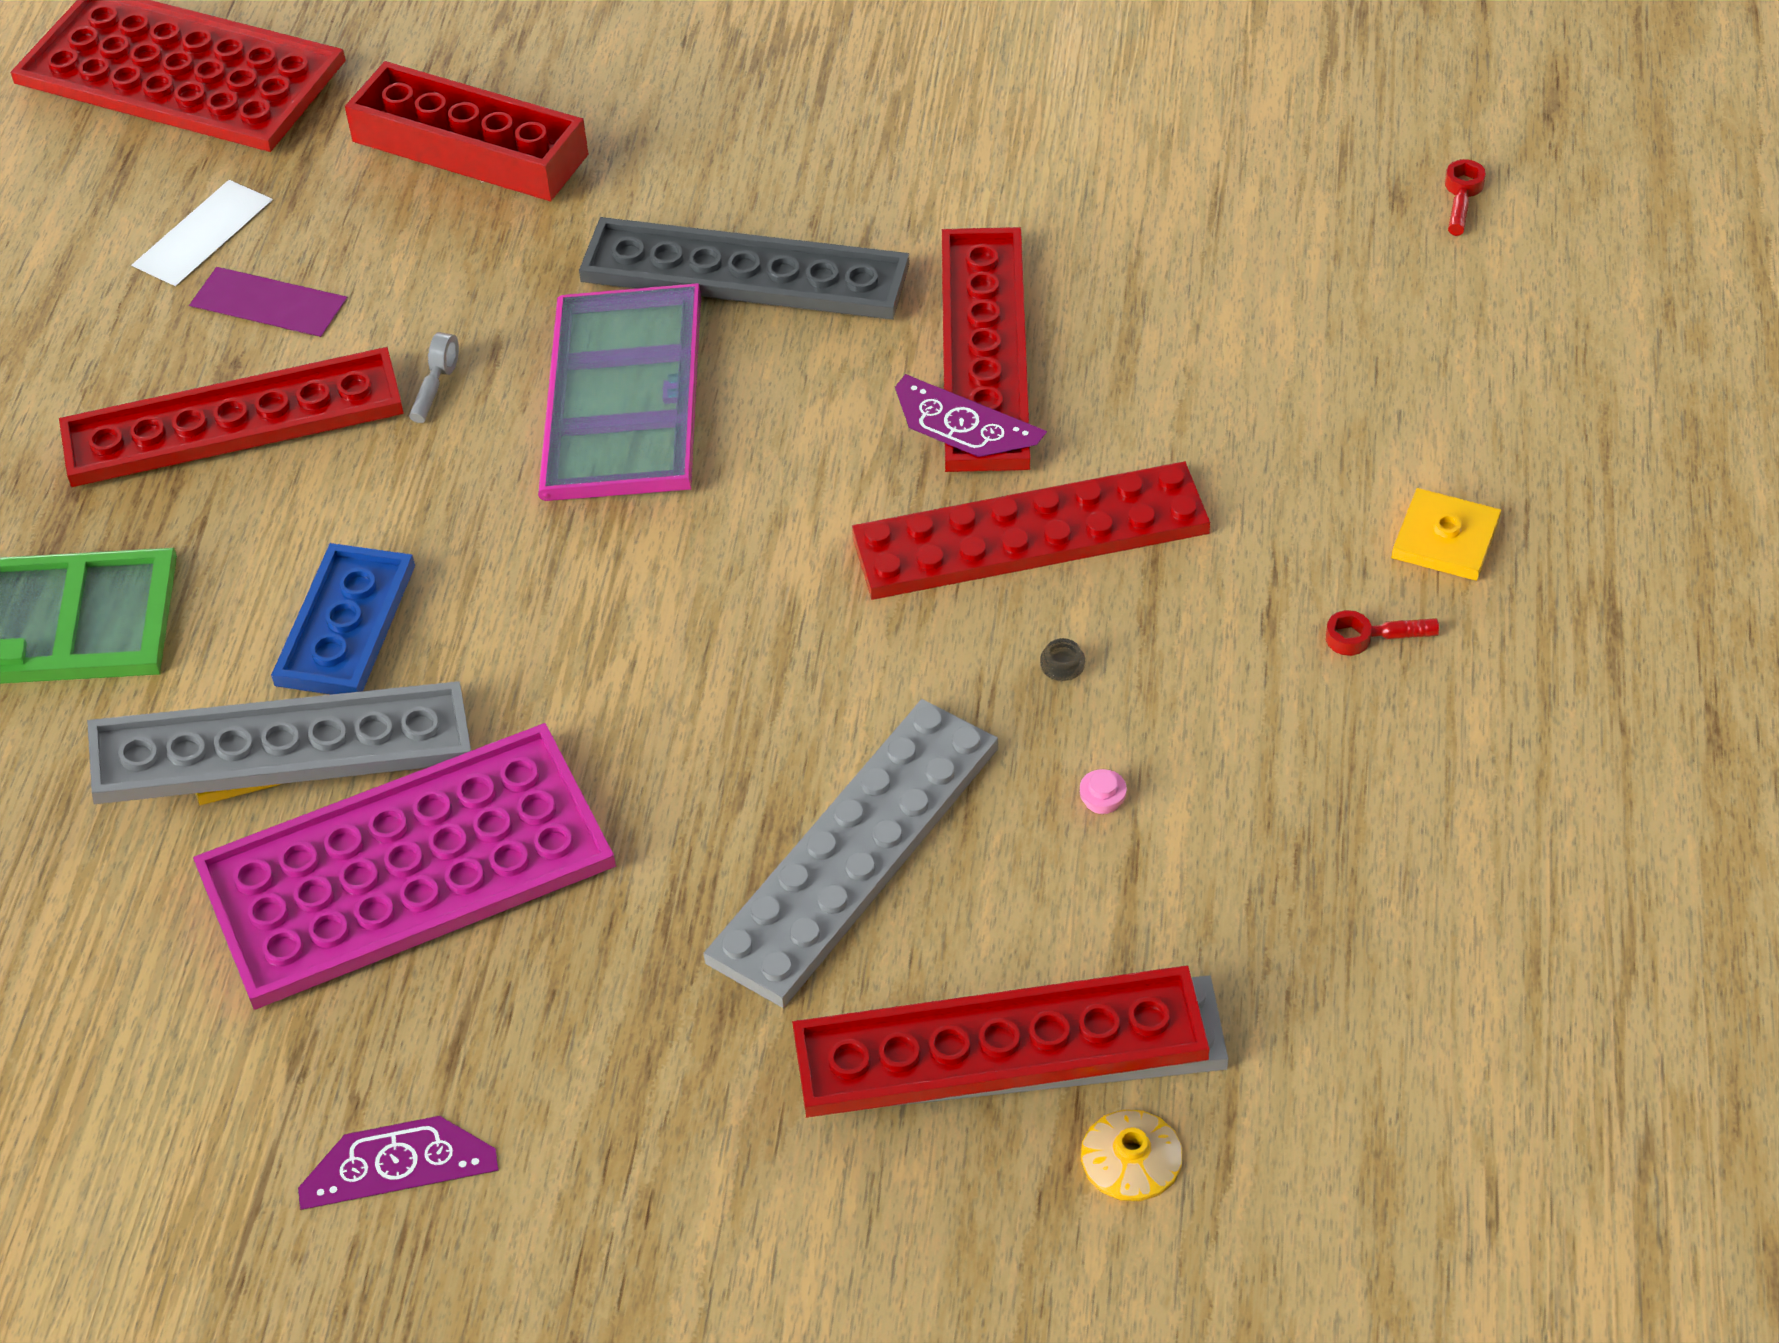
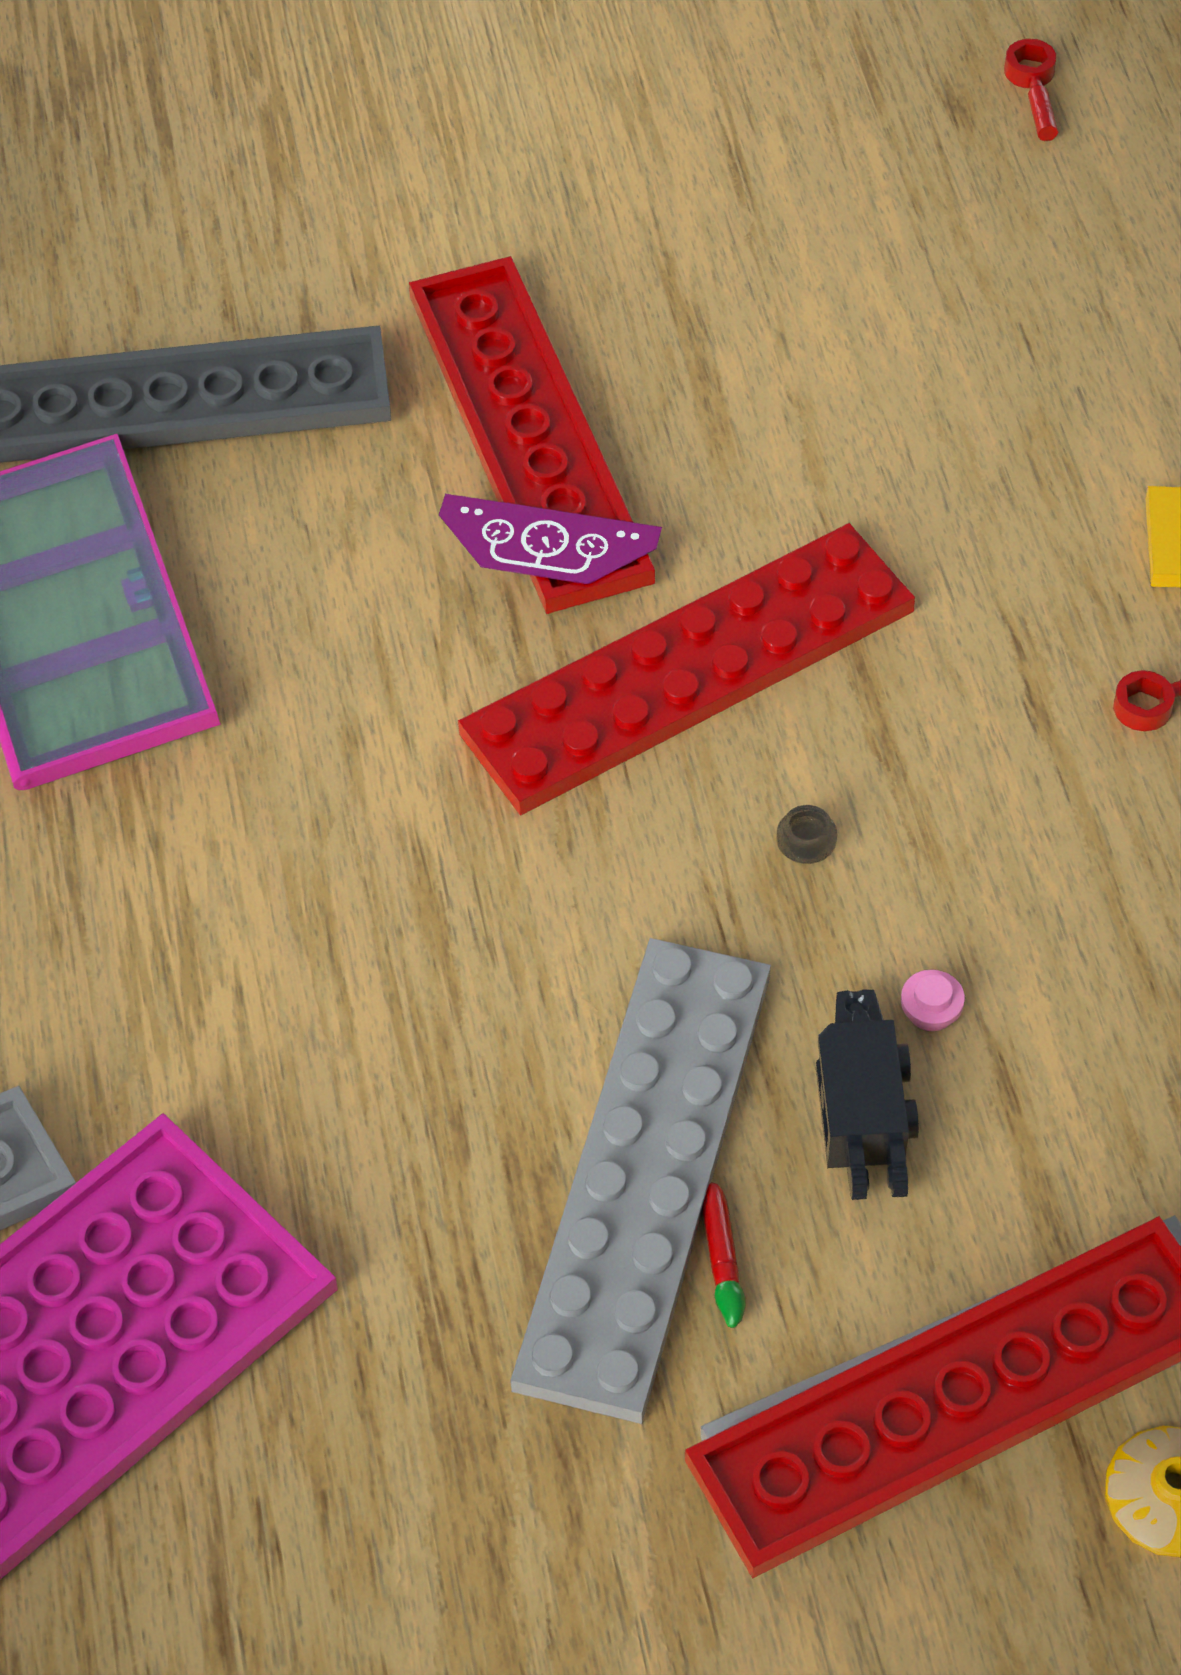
camera: 20 degrees left, 5 degrees up
(877, 939) = (722, 1253): none -> red piece
(1023, 837) = (864, 1095): none -> black hinge

